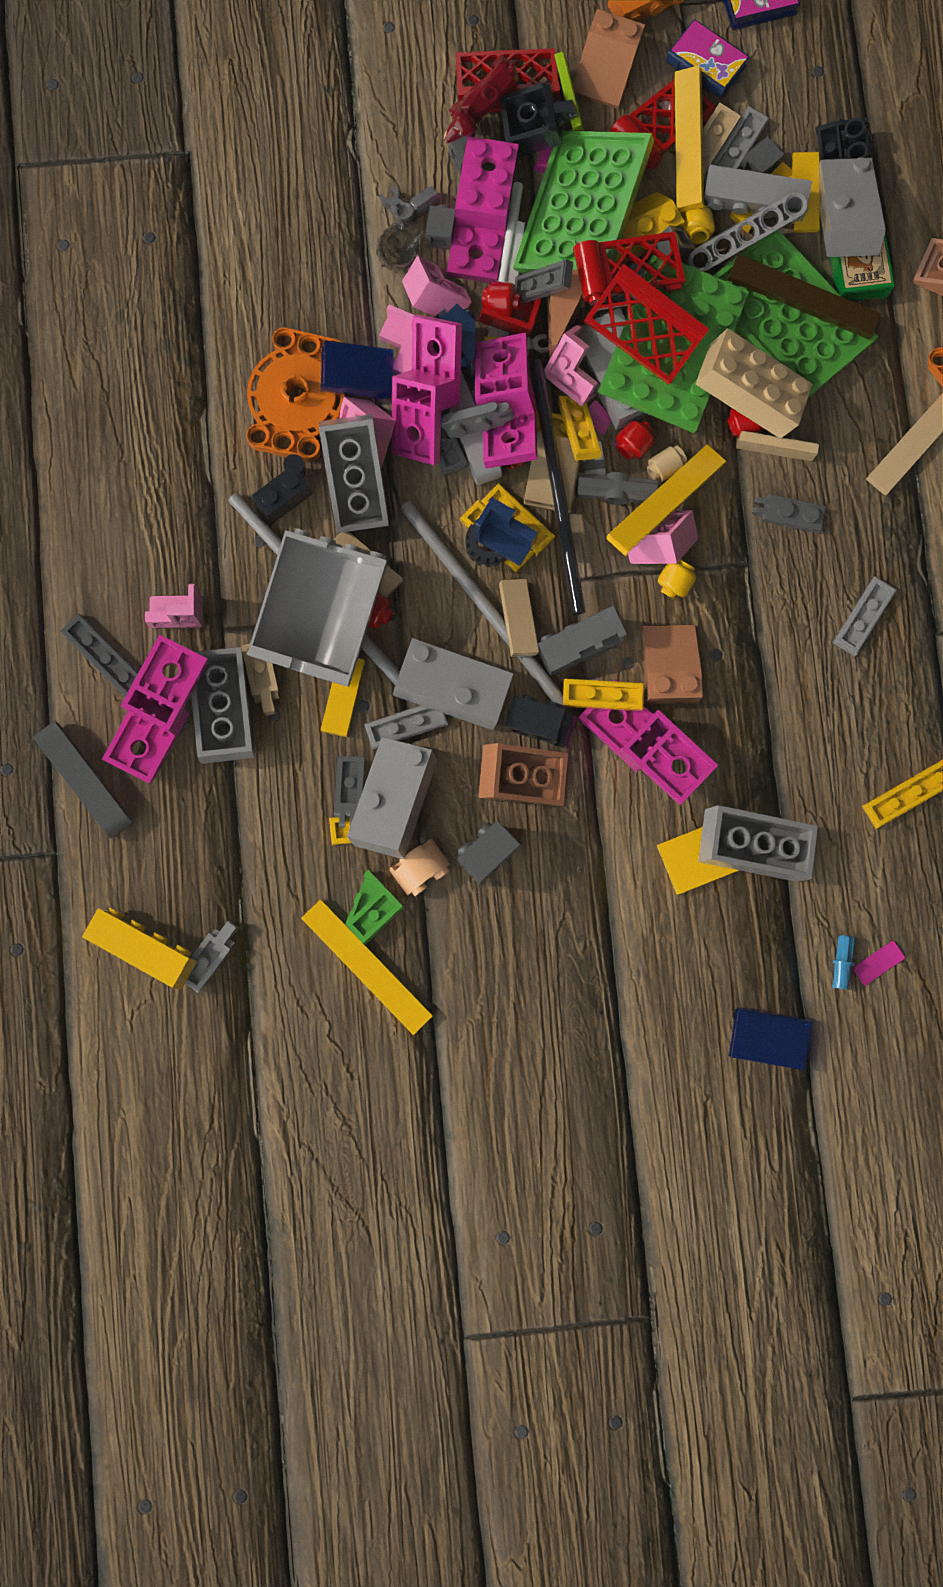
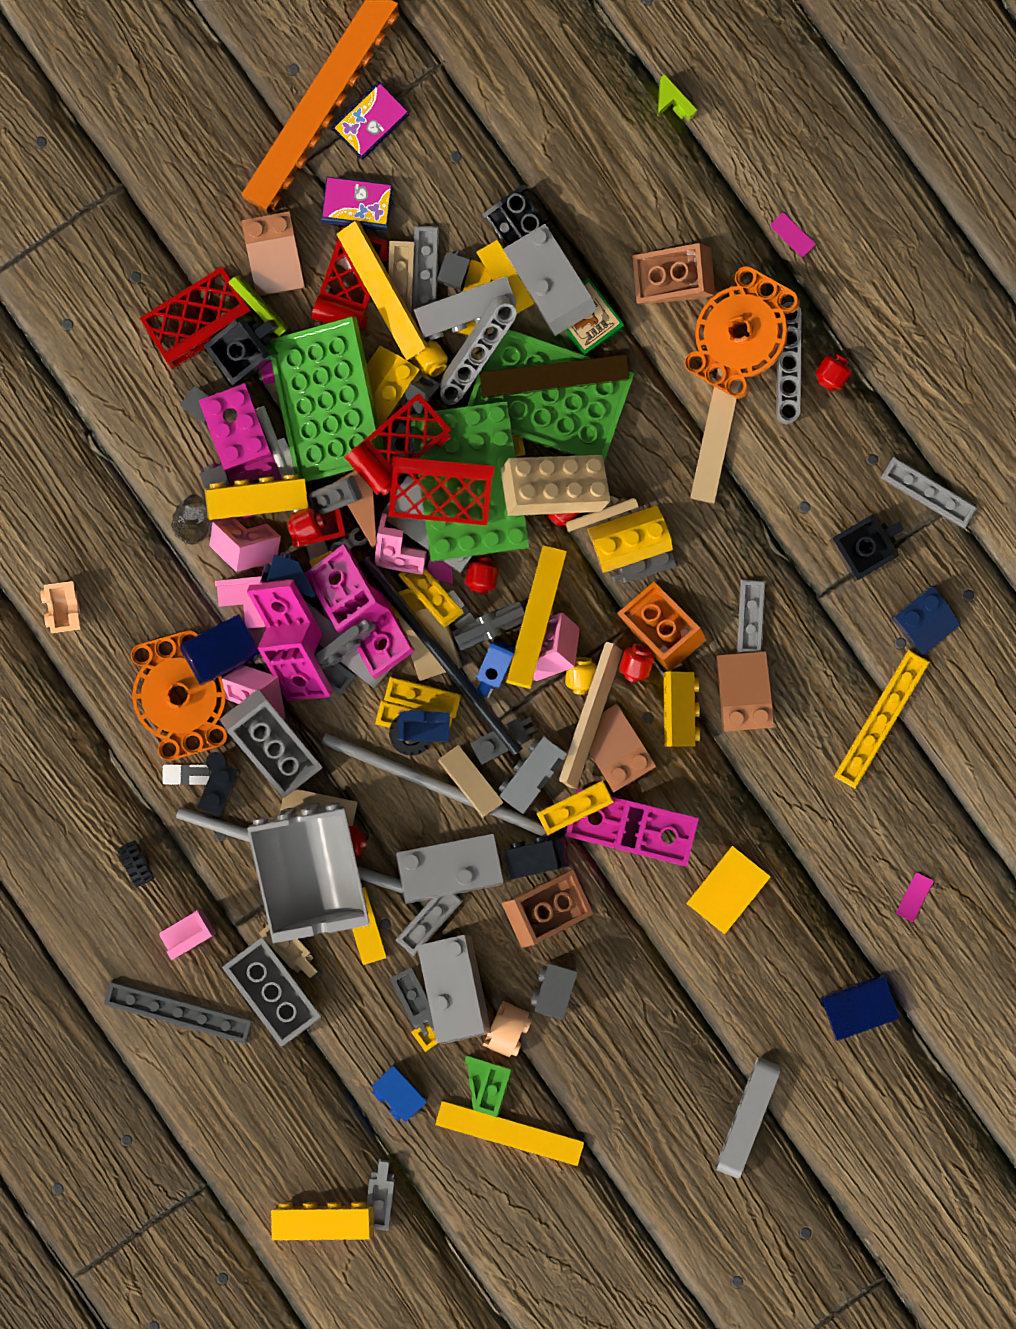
camera: 30 degrees left, 5 degrees up
(83, 779) = (195, 1114): dark grey beam -> none
(155, 709) = (224, 1028): dark pink bracket -> none
(165, 516) = (135, 863): none -> black tyre
(239, 254) = (62, 607): none -> light nougat cylinder
(258, 467) = (185, 774): none -> white sticker
(283, 868) = (398, 1094): none -> blue brick
(417, 205) = (179, 487): flat silver bar -> none
(467, 249) = (256, 498): none -> yellow brick
(481, 99) = (190, 360): dark red animal -> none
(557, 598) = (491, 746): none -> dark grey hinge
(603, 1083) = (748, 1117): none -> light grey beam
(607, 515) = (499, 658): none -> torso
(666, 463) = (519, 582): tan brick -> none
(666, 618) = (590, 715): none -> tan tile
(735, 595) = (636, 663): none -> red head
(754, 659) = (680, 709): none -> yellow slope
(758, 843) = (765, 860): light grey brick -> none
(778, 577) = (662, 626): none -> orange slope
(793, 482) = (630, 538): none -> yellow slope
(823, 678) = (744, 691): none -> nougat slope
(843, 962) = (885, 913): dark azure axle -> none

